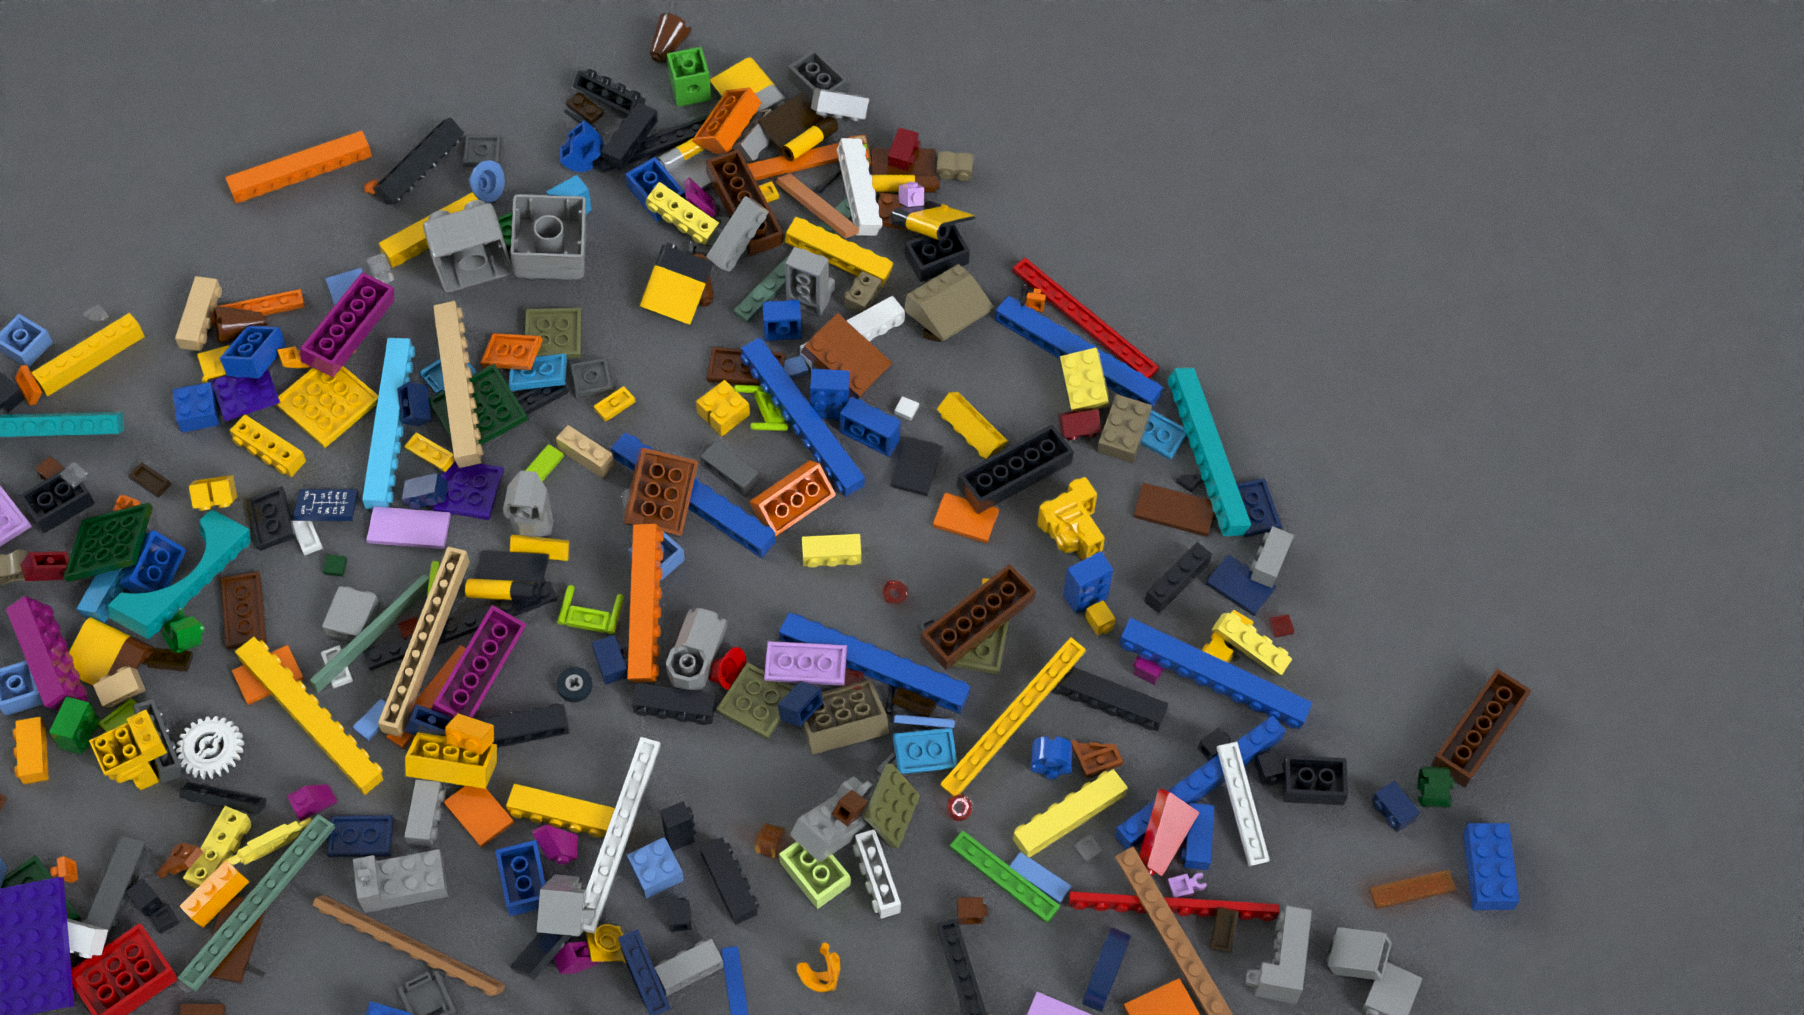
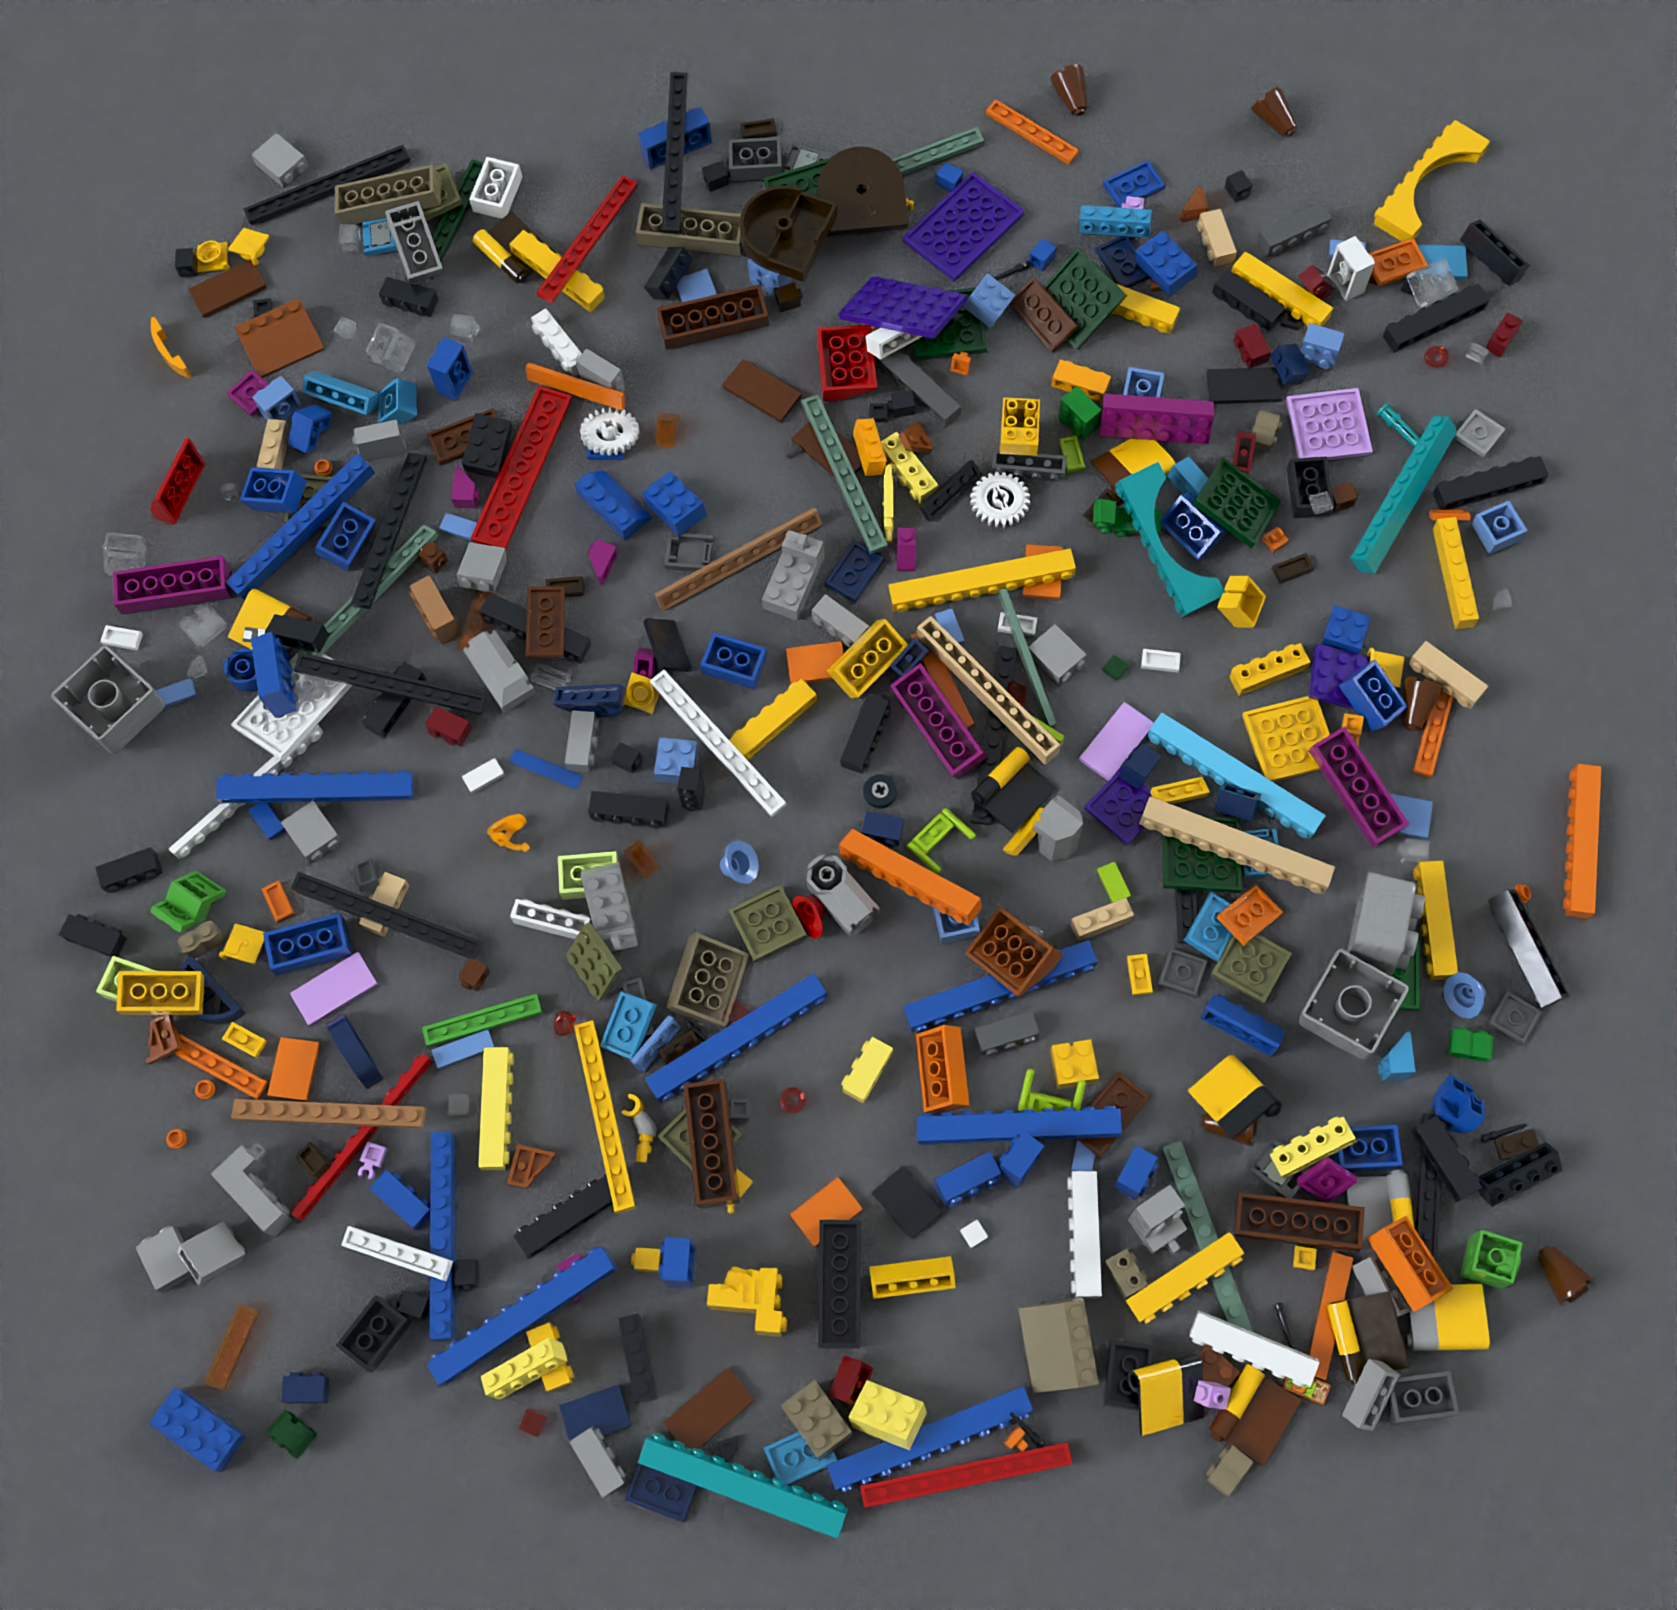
camera: 130 degrees right, 10 degrees up
(119, 687) = (1095, 458): tan brick -> none
(242, 609) = (1116, 581): reddish brown tile -> none
(271, 518) = (1193, 639): black tile -> none
(325, 505) = (1179, 686): dark blue tile -> none
(469, 734) = (876, 677): light orange brick -> none
(525, 165) = (1470, 1045): none -> green brick
(557, 843) = (742, 699): magenta slope -> none
(563, 906) = (676, 657): light grey hinge -> none
(609, 311) = (1243, 1025): none -> blue slope
(674, 704) = (795, 868): black brick -> none
(720, 752) = (740, 862): none -> medium blue hat
(737, 234) = (1255, 1184): light grey brick -> none
(800, 704) = (734, 947): dark blue brick -> none
(805, 663) = (769, 976): lavender tile -> none
(817, 206) = (1255, 1293): nougat tile -> none
(844, 348) = (1056, 1206): dark orange slope -> none
(849, 808) = (605, 917): reddish brown brick -> none
(903, 149) = (1276, 1426): dark red brick -> none
(998, 686) = (645, 1126): none -> yellow piece
(1051, 757) = (548, 1122): blue brick -> none
(1165, 831) = (417, 1168): slope -> none
(1481, 727) = (311, 1524): reddish brown brick -> none

